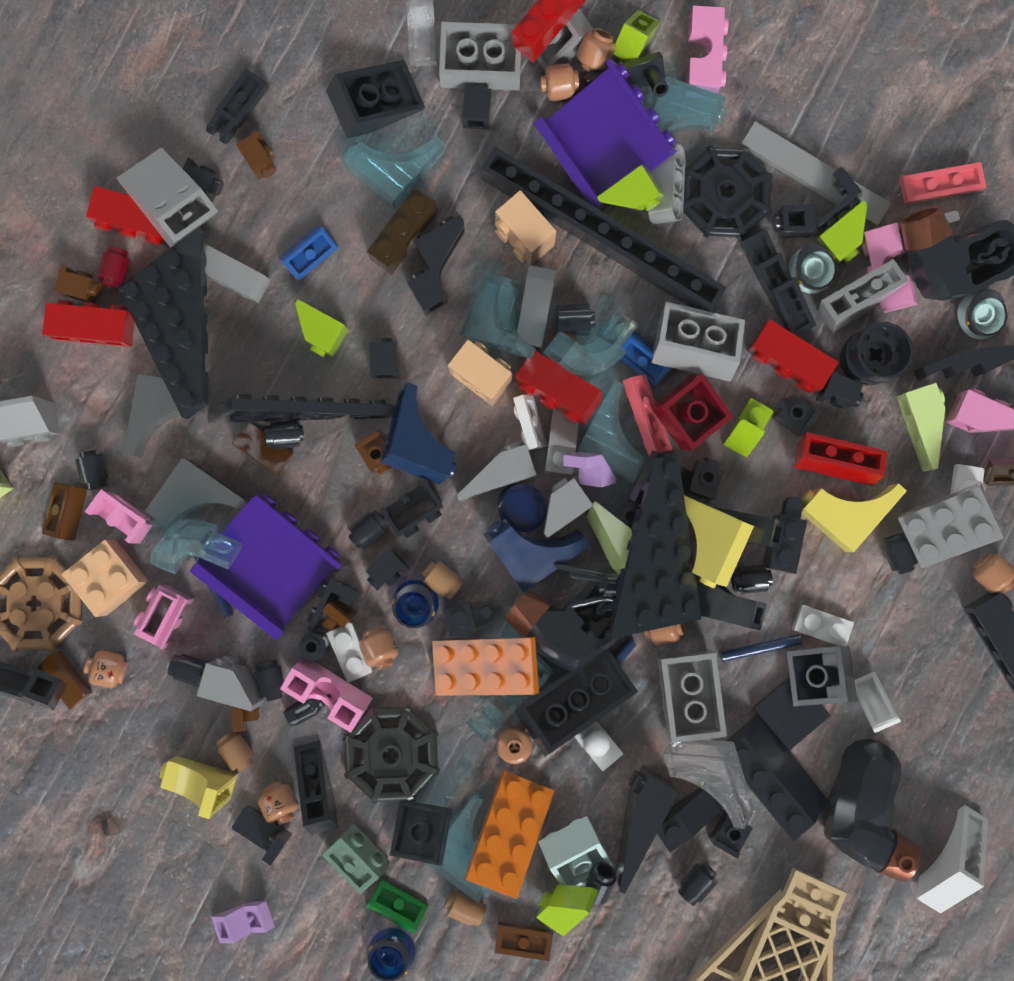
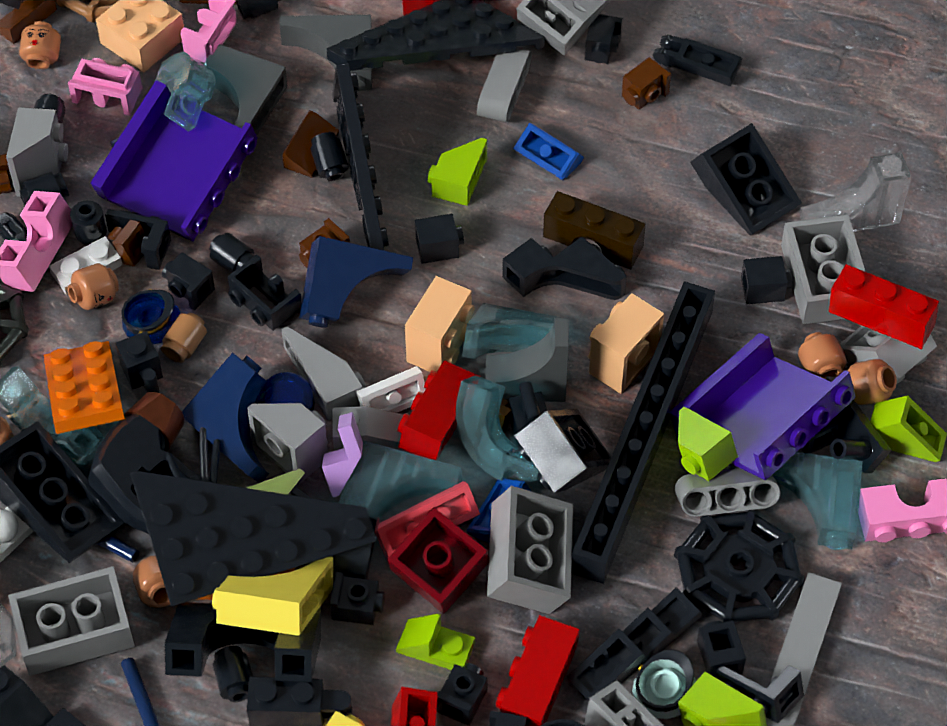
camera: 80 degrees right, 30 degrees down
(390, 174) = (660, 207): clear light blue arch -> none
(622, 296) = (562, 449): none -> slope

